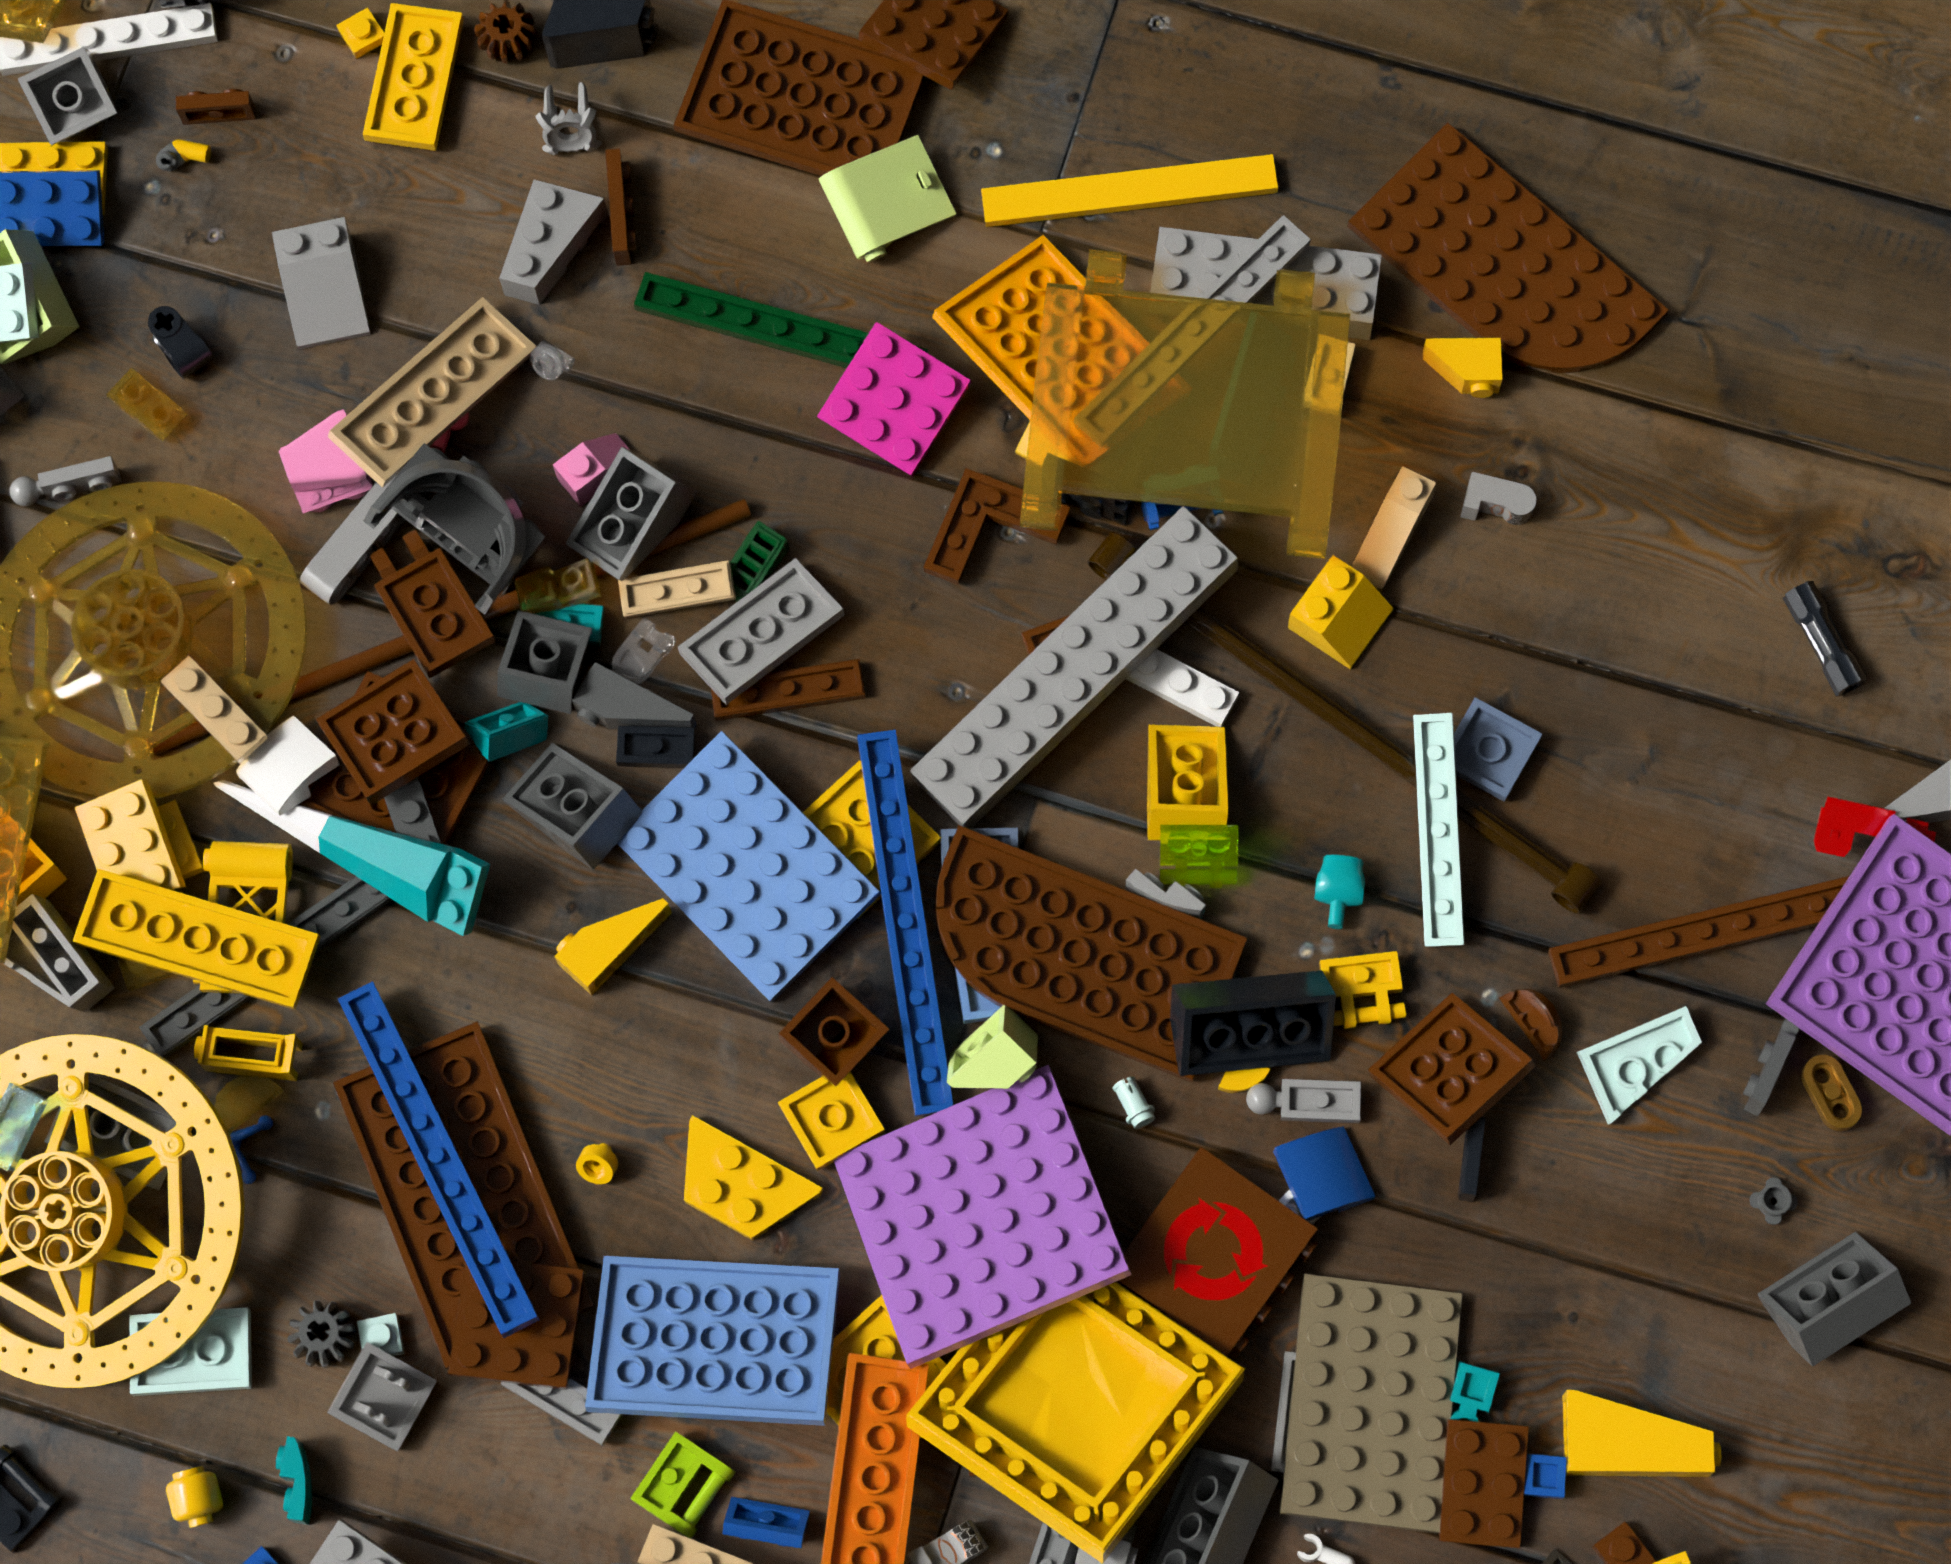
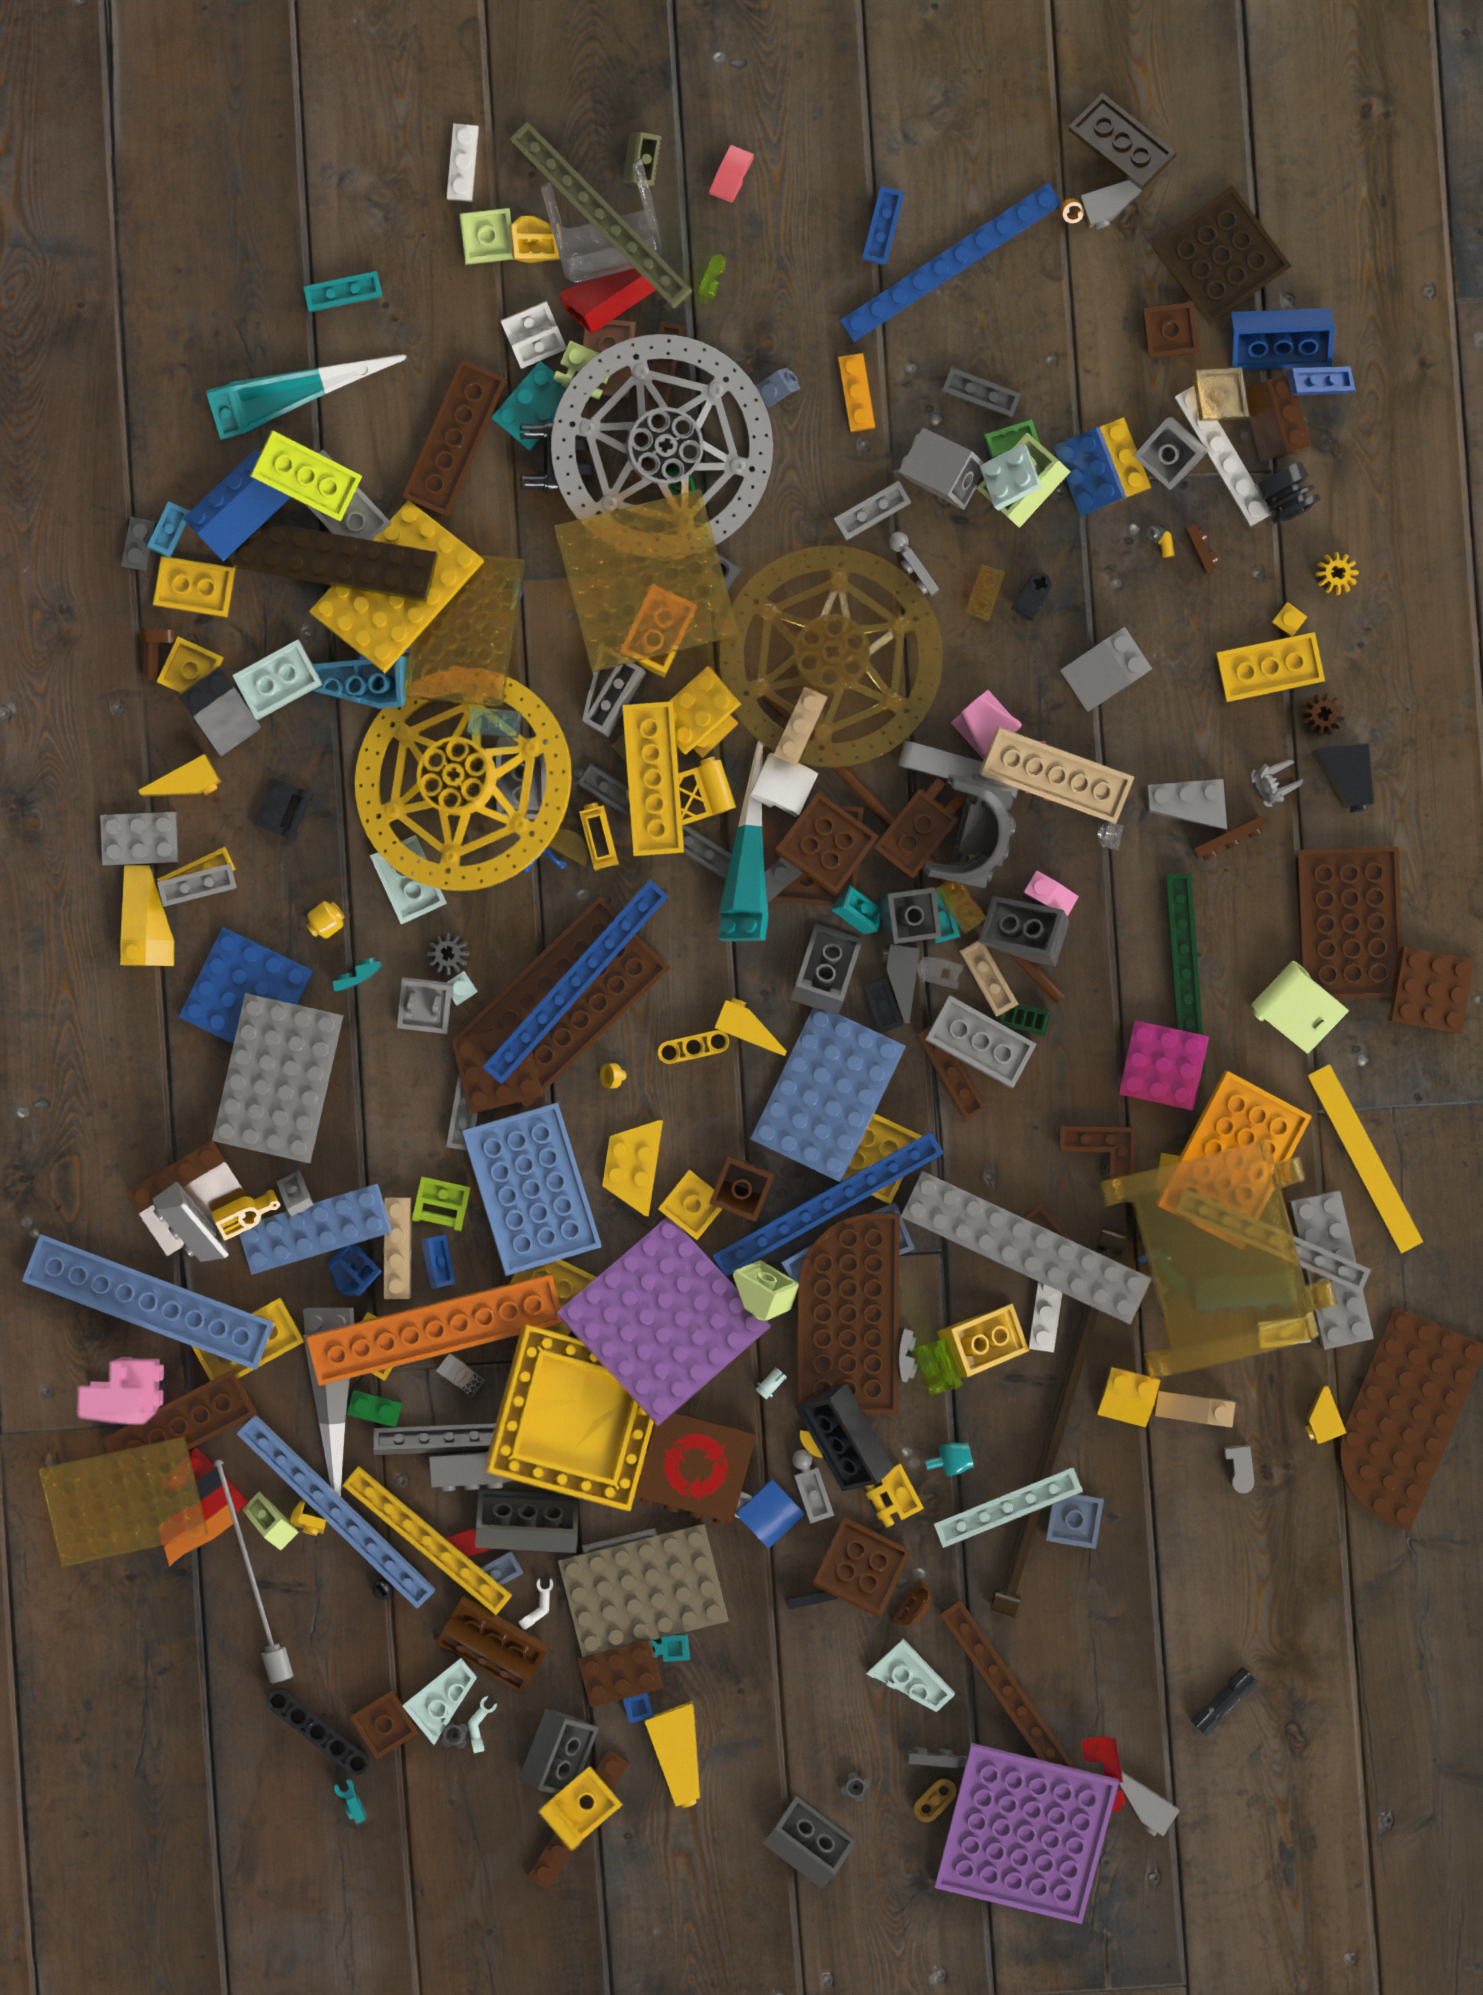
camera: 60 degrees right, 15 degrees up
(598, 1013) = (681, 1051): none -> yellow beam

